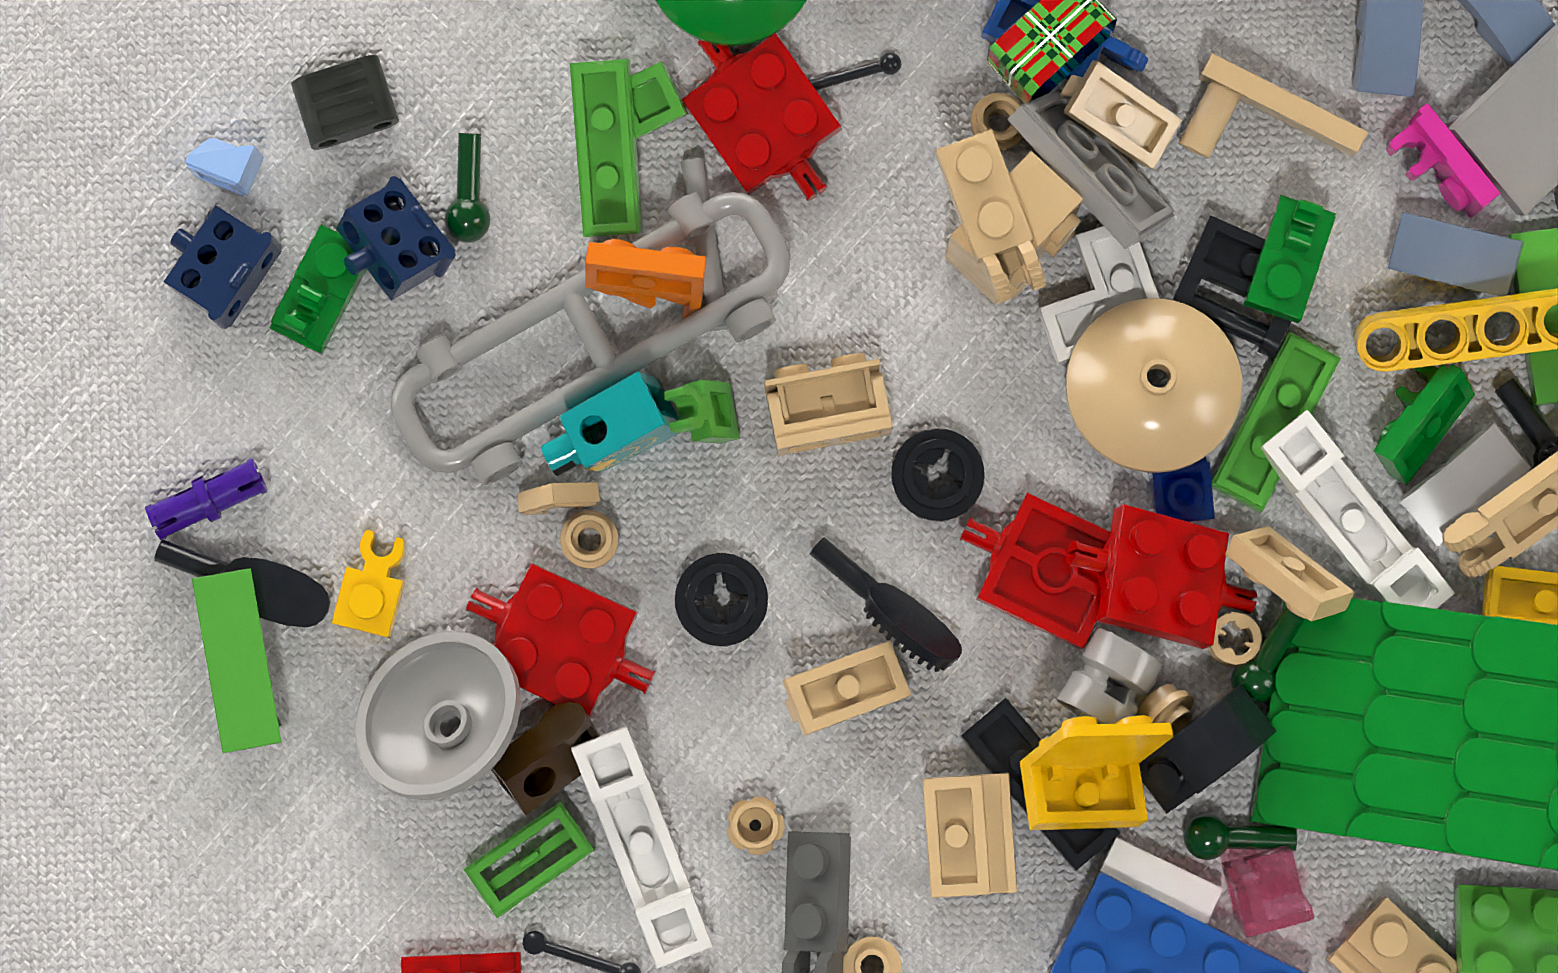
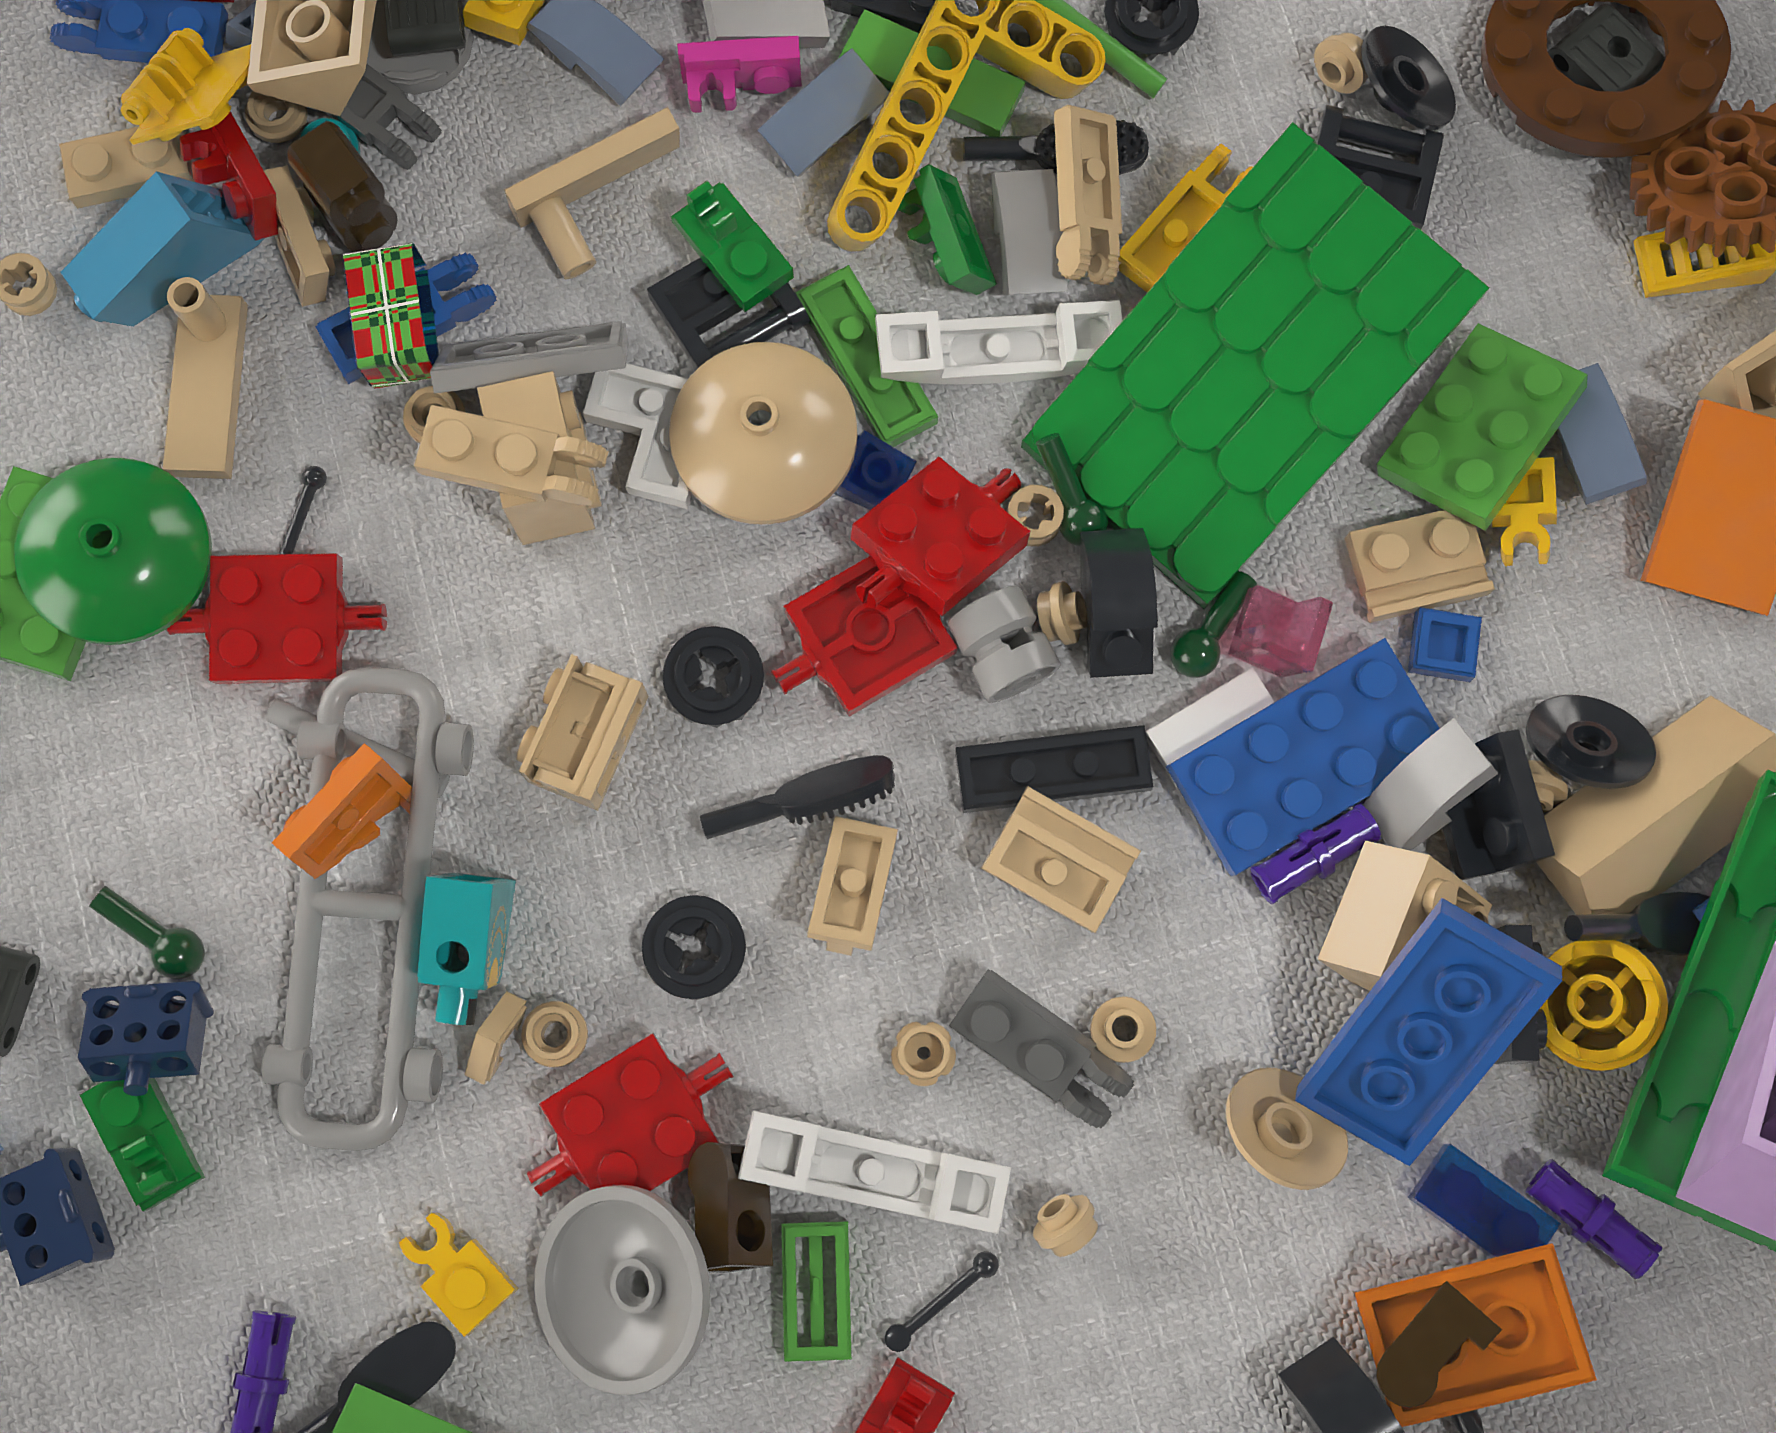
camera: 60 degrees left, 5 degrees down
(606, 147) = (200, 776): bright green tile -> none
(655, 100) = (186, 716): bright green plate -> none
(705, 411) = (509, 846): bright green plate -> none
(1091, 774) = (1076, 712): yellow bracket -> none
(1120, 114) = (501, 305): tan plate -> none
(1289, 573) = (997, 429): tan plate -> none

